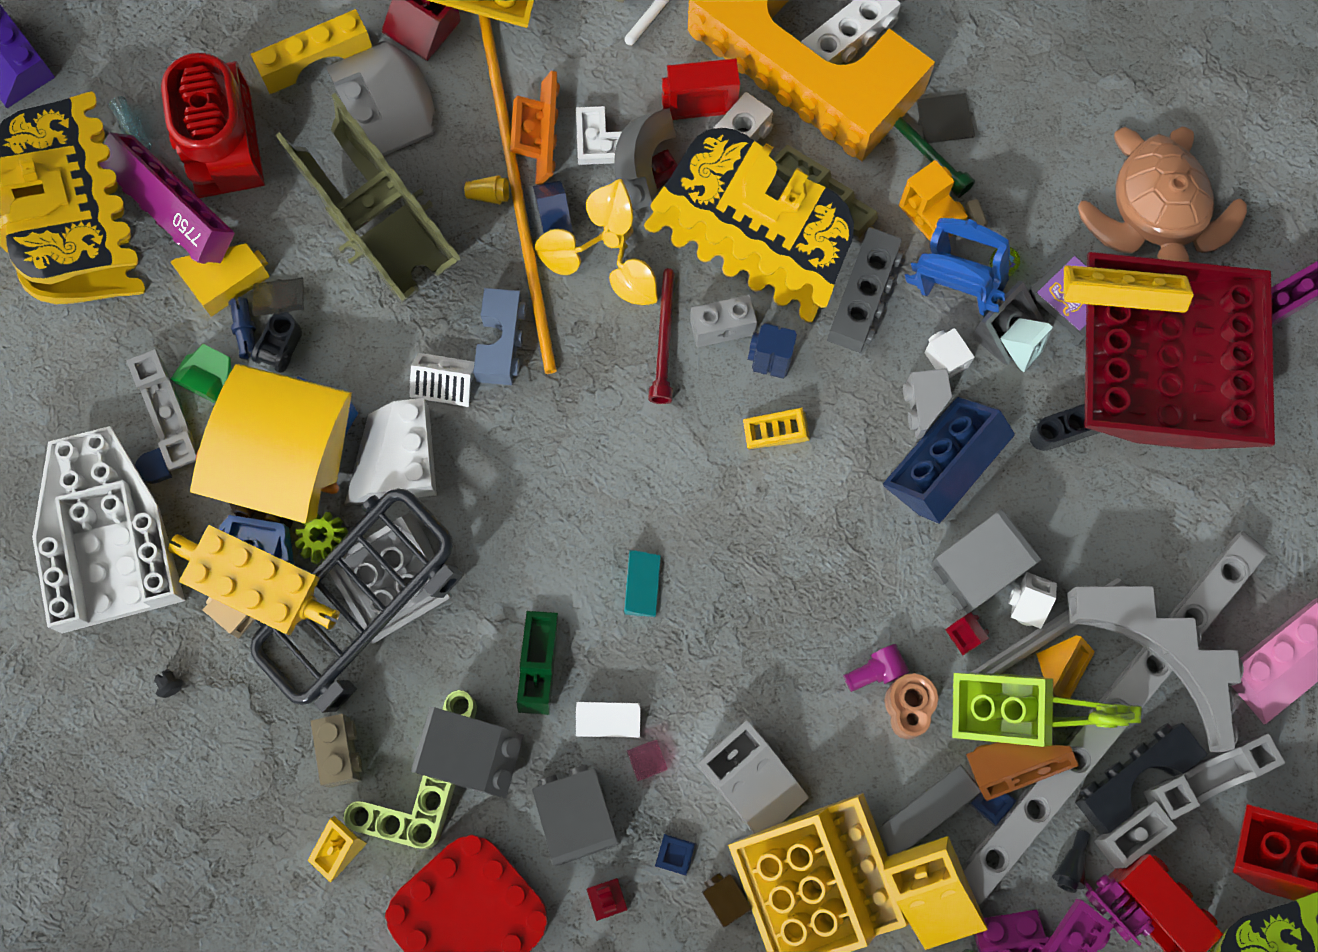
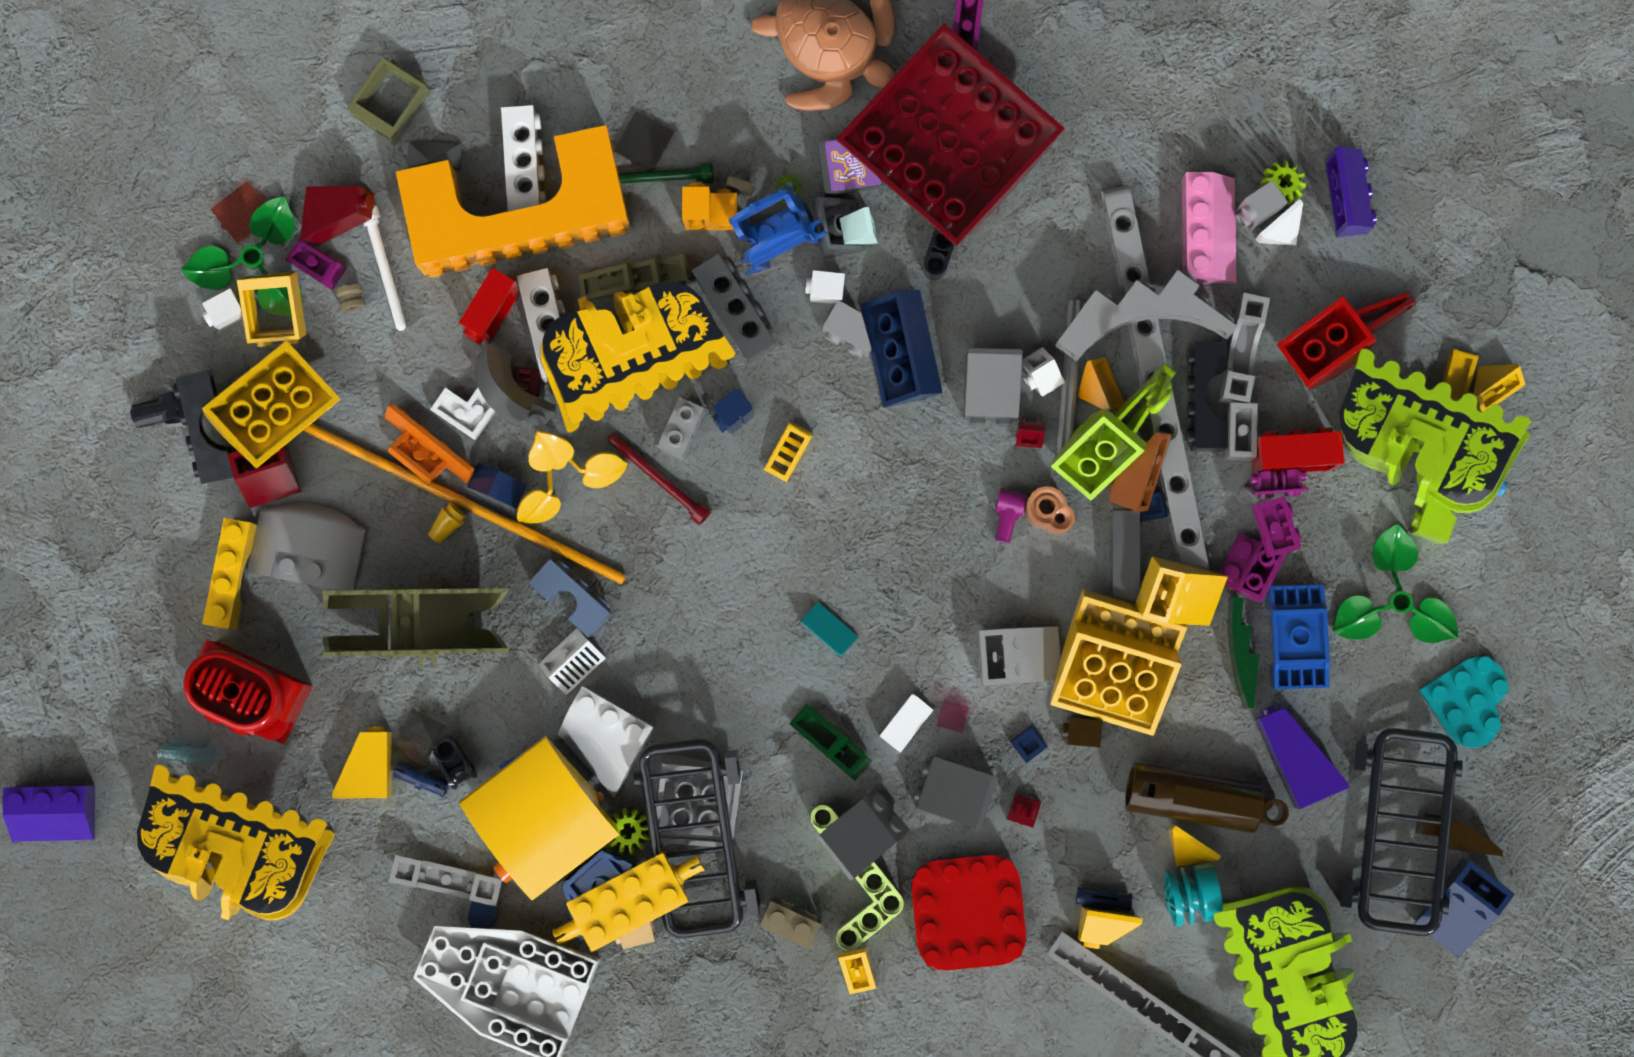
camera: 50 degrees left, 10 degrees up
(167, 199) = (280, 767): magenta brick -> none
(167, 684) = (656, 1009): black piece -> none
(203, 372) = (439, 830): green slope -> none
(1071, 871) = (1231, 489): black cone -> none
(1127, 289) = (882, 136): yellow slope -> none

